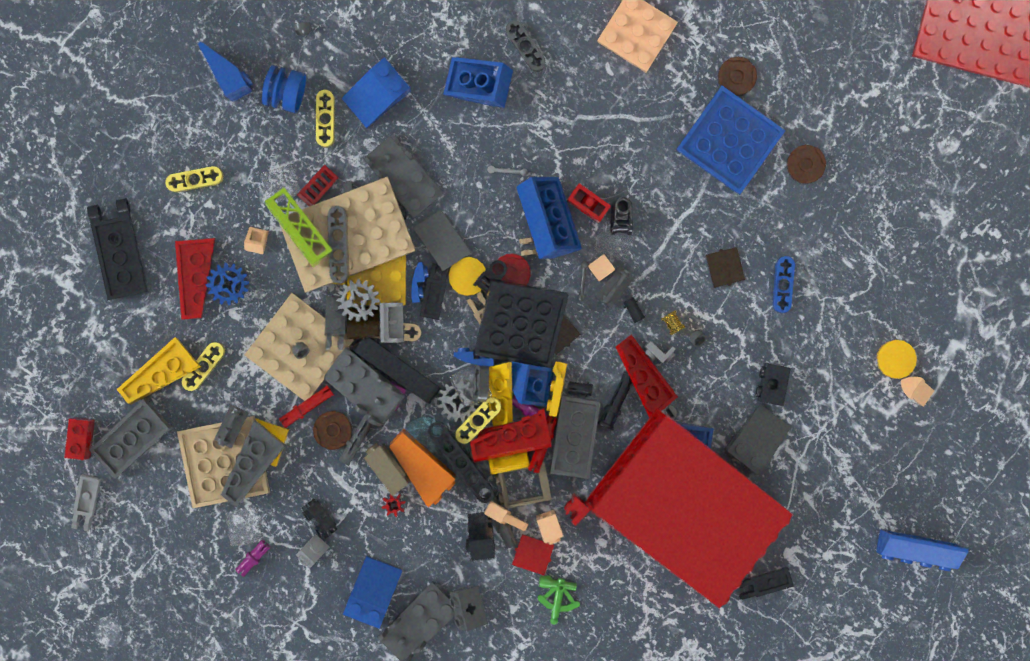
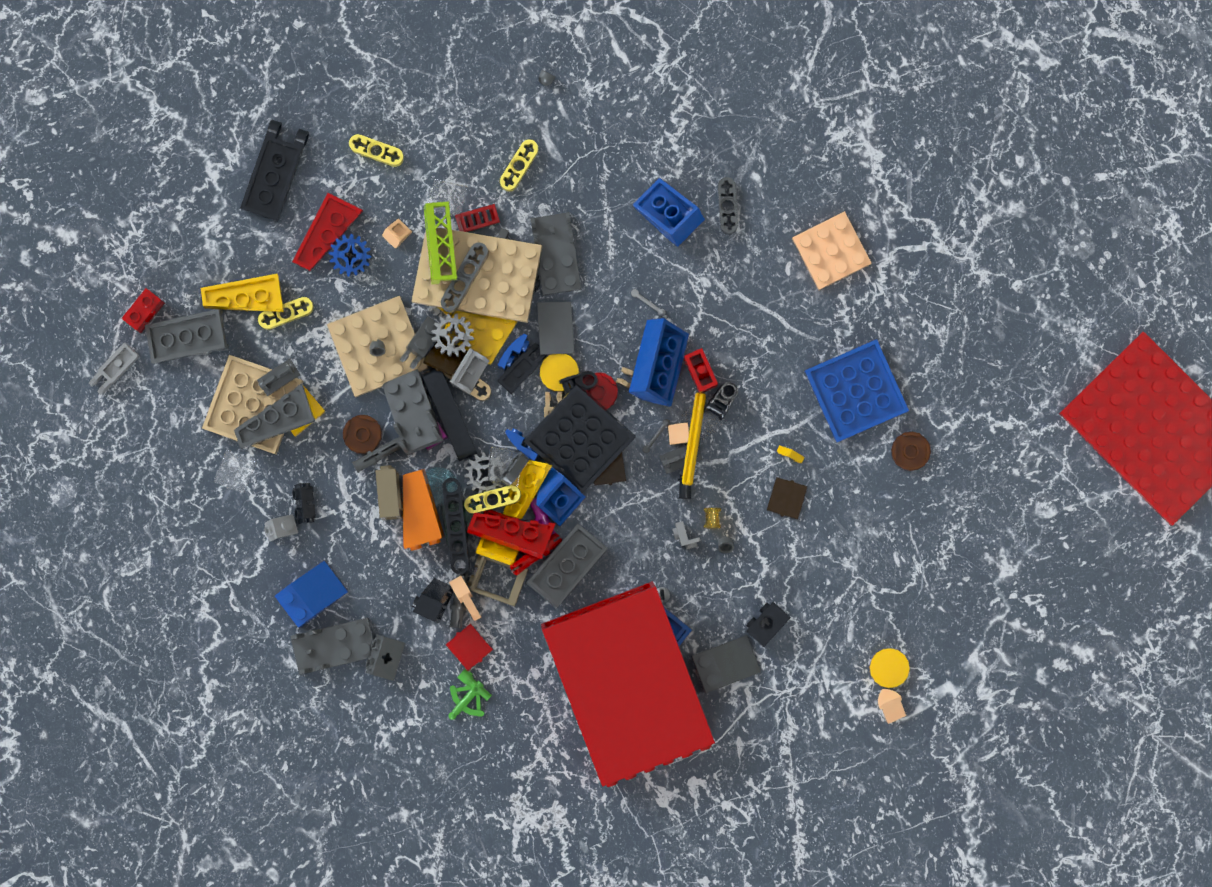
camera: 35 degrees right, 5 degrees down
(231, 80) = (459, 84): blue slope -> none
(252, 558) = (226, 502): magenta pin -> none
(280, 88) = (496, 116): blue wheel -> none
(299, 411) = (352, 400): red pin -> none
(376, 92) = (575, 169): blue slope -> none
(399, 504) = (370, 527): red gear -> none
(549, 527) = (498, 629): light nougat brick -> none
(557, 388) = (577, 514): yellow hinge -> none
(577, 508) = (534, 627): red hinge -> none
(580, 388) = (597, 526): black pin -> none
(613, 409) = (615, 562): black pin -> none
(618, 265) = (693, 439): none -> yellow axle
(647, 380) = (659, 549): red wing -> none
(706, 228) = (790, 453): none -> yellow tile
(737, 75) = (896, 339): reddish brown tile -> none
(767, 583) = (658, 795): black hinge -> none
(788, 299) = (841, 534): blue beam -> none
(920, 549) = (807, 844): slope -> none

